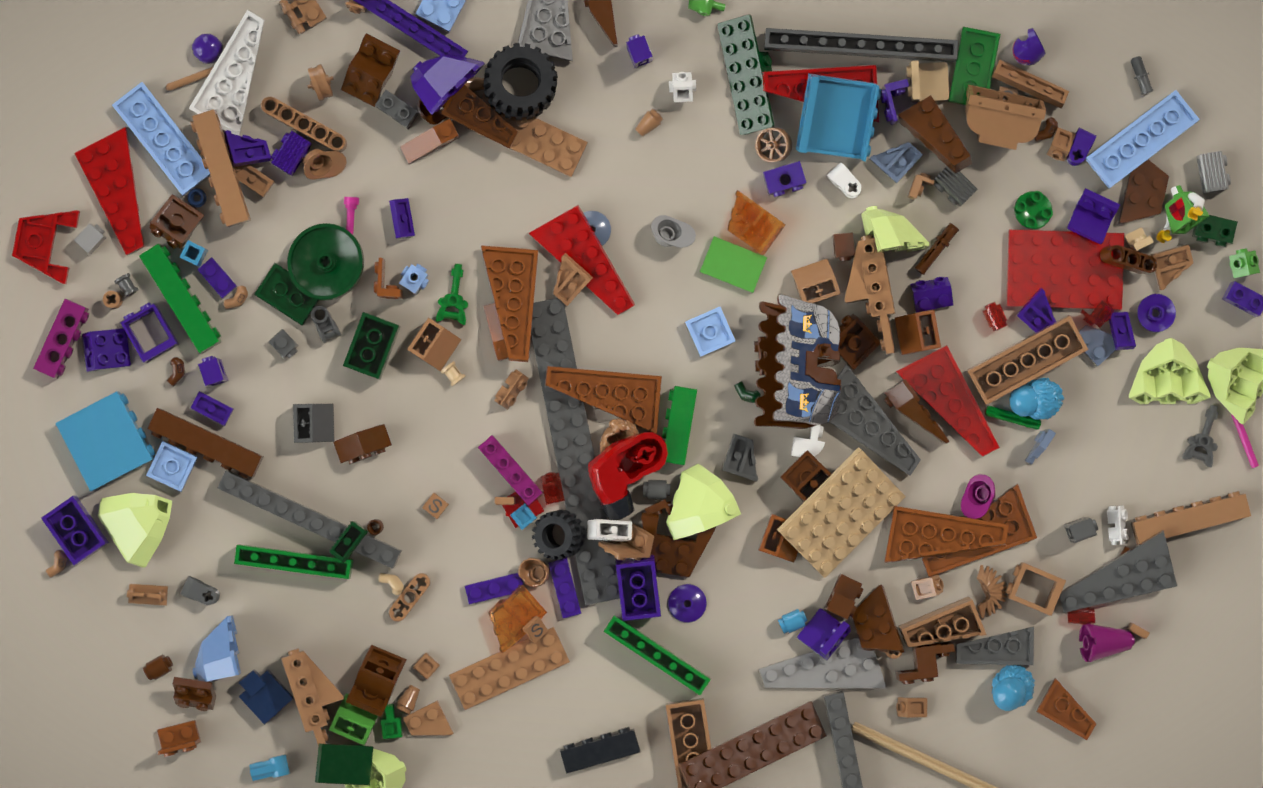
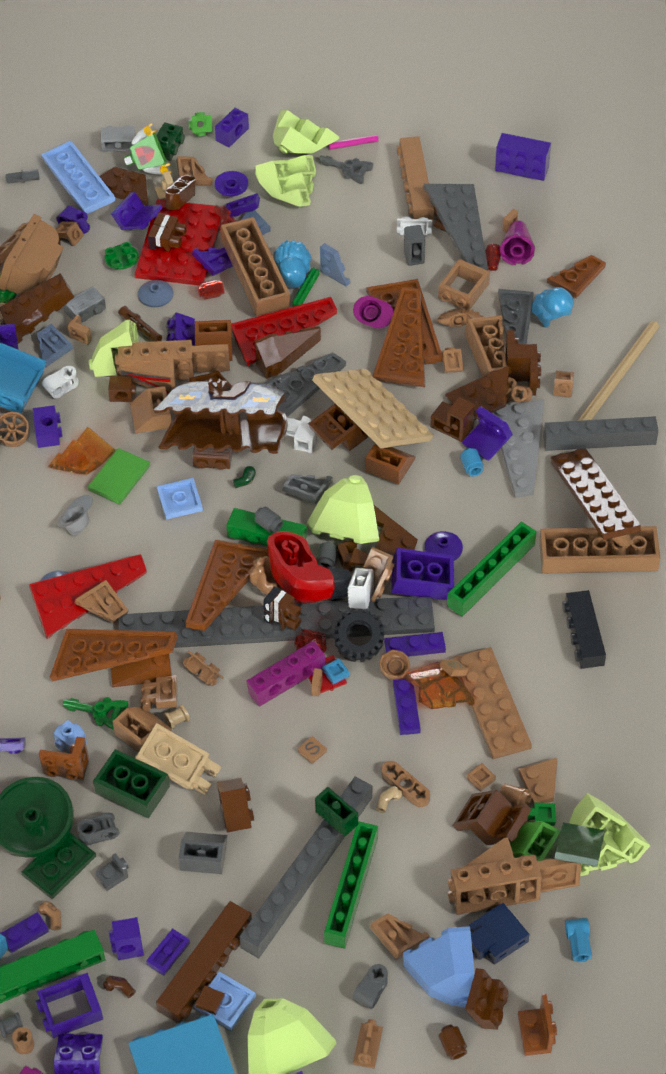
camera: 80 degrees left, 35 degrees down
(166, 454) = (210, 1000): none -> reddish brown tile
(253, 608) = (397, 935): none -> medium nougat wing
(399, 383) = (178, 759): none -> tan tile
(475, 359) = (165, 693): none -> medium nougat plate
(573, 459) = (281, 608): none -> reddish brown hips
(680, 427) = (268, 519): none -> dark grey brick
(885, 665) = (526, 397): none -> medium nougat bush
(978, 256) = (155, 293): none -> sand blue dish
(1054, 255) = (165, 232): none -> reddish brown hips
(1231, 636) = (522, 156): none -> dark purple brick

